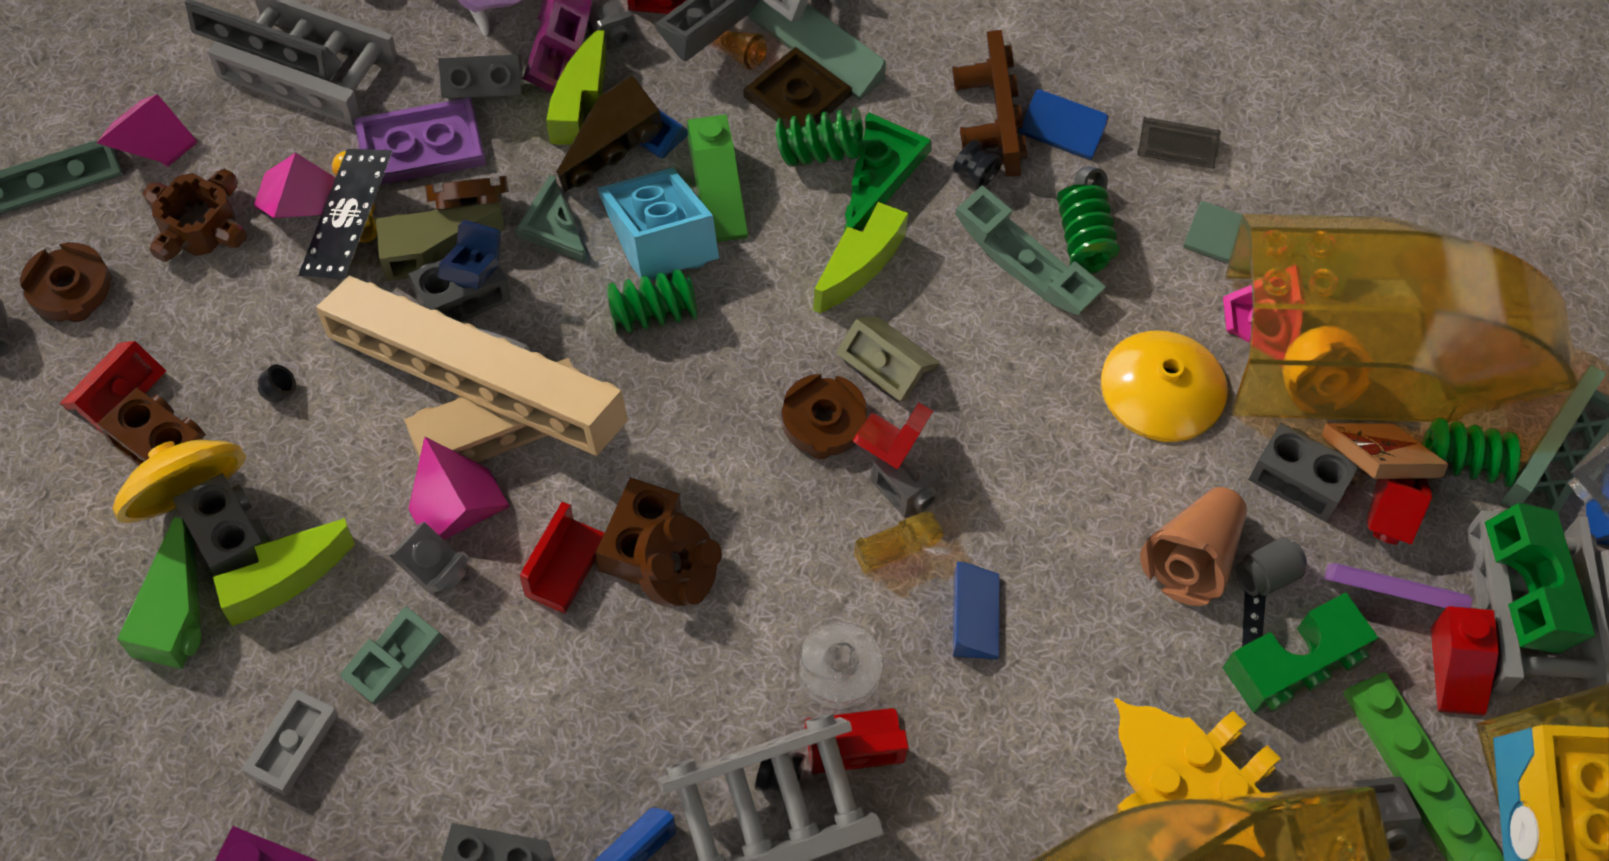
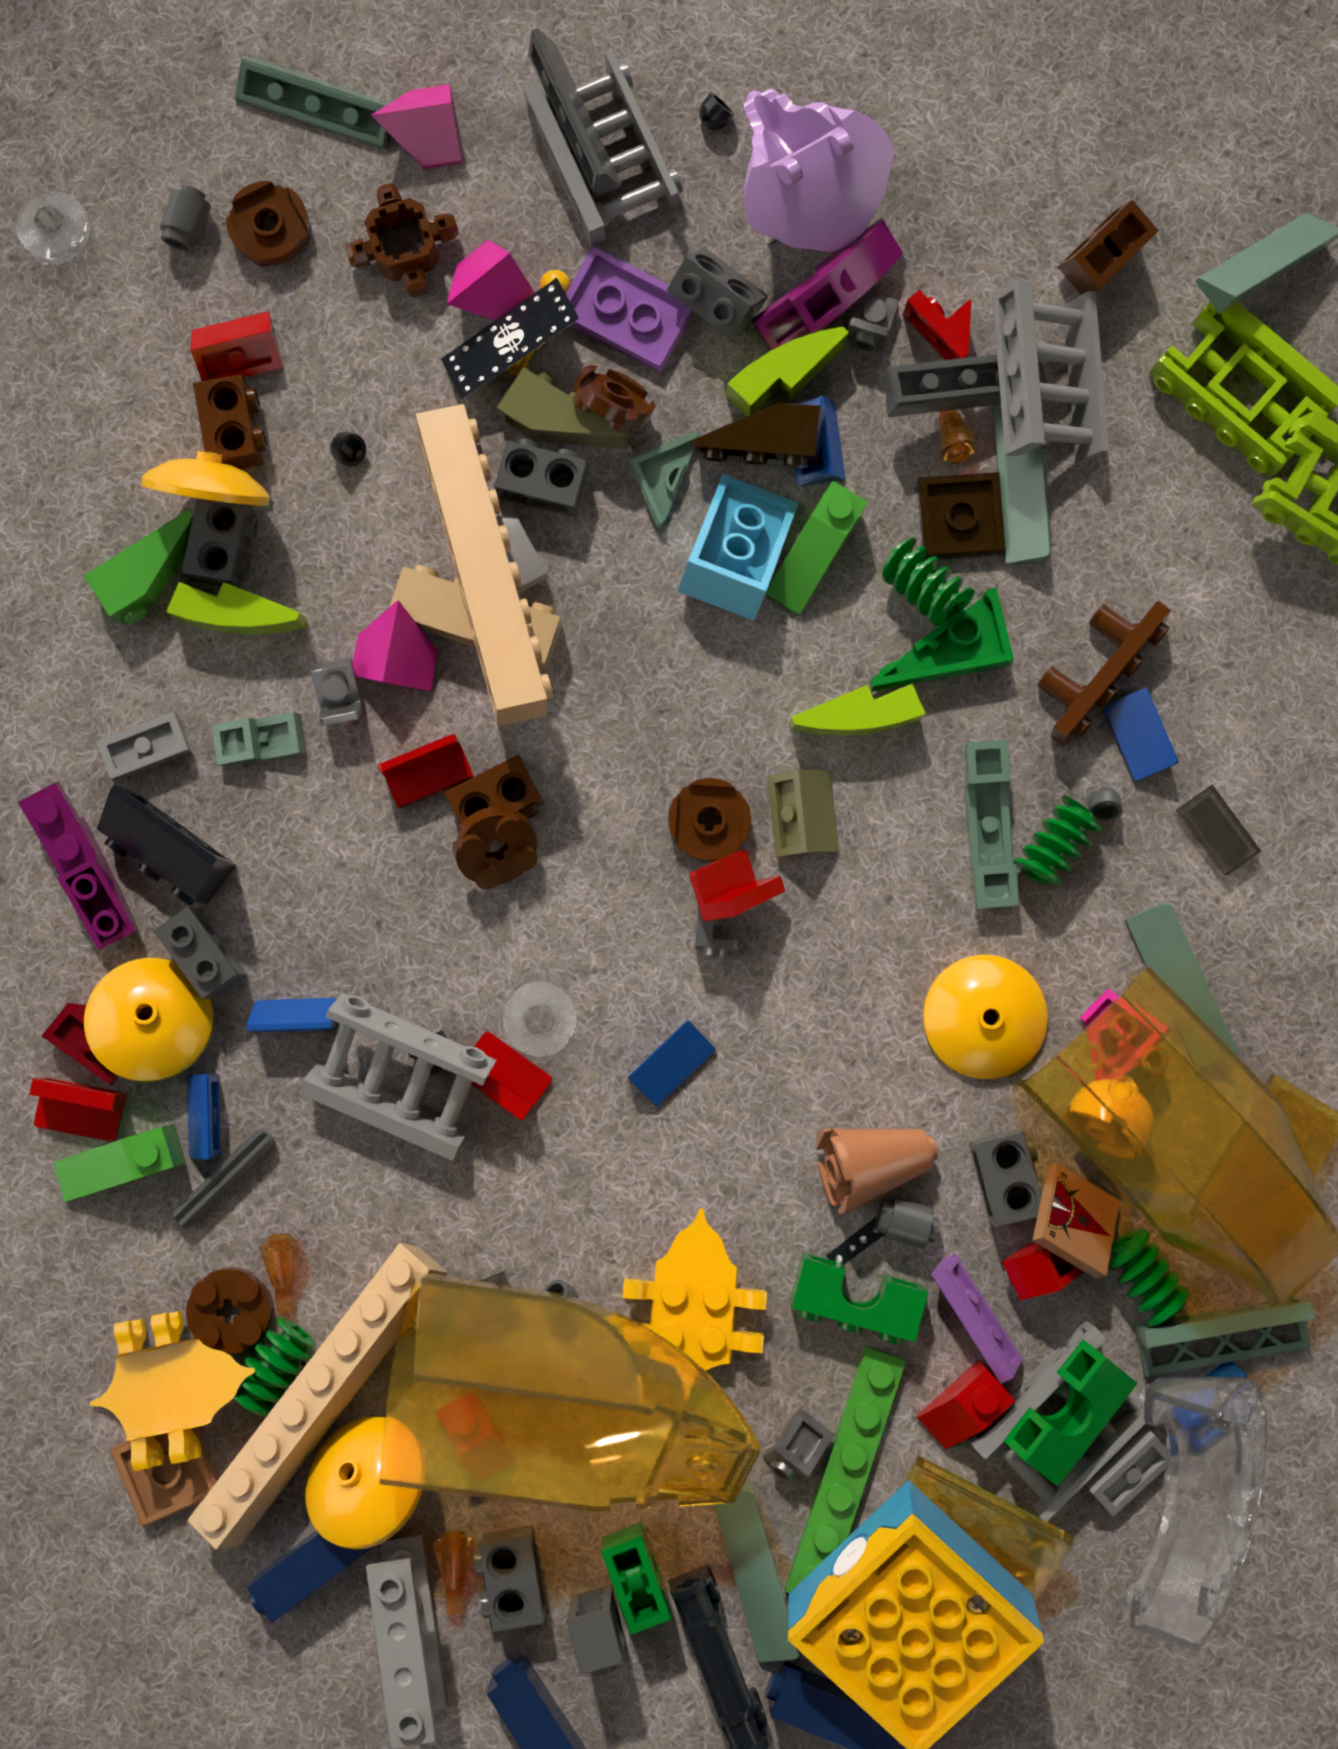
camera: 45 degrees right, 25 degrees up
(380, 797) = (162, 846): none -> black slope
(473, 257) = (555, 472): dark blue bracket -> none
(651, 300) = (668, 617): green piece -> none
(898, 541) = (667, 965): clear yellow piece -> none
(977, 164) = (1031, 711): black wheel -> none

